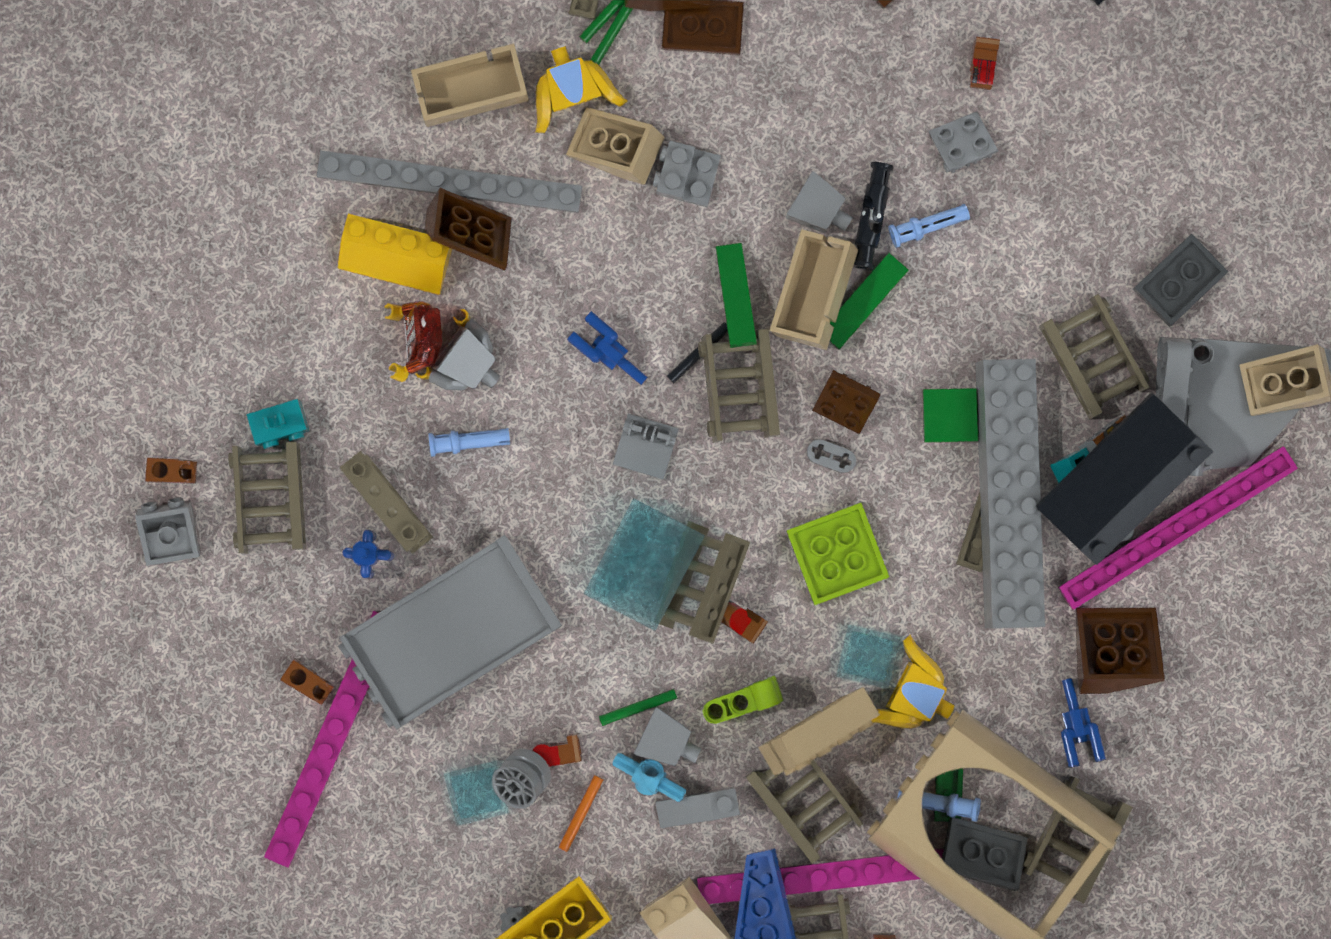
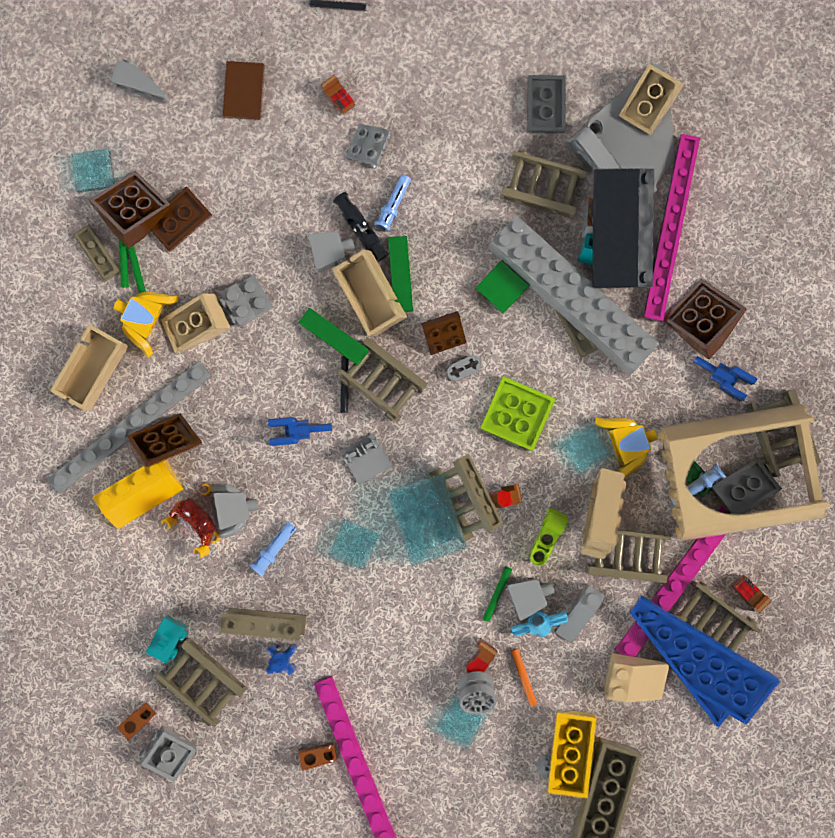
camera: 40 degrees left, 0 degrees up
(449, 633) = (363, 657): light grey panel -> none
(549, 516) = (354, 544): none -> clear light blue plate

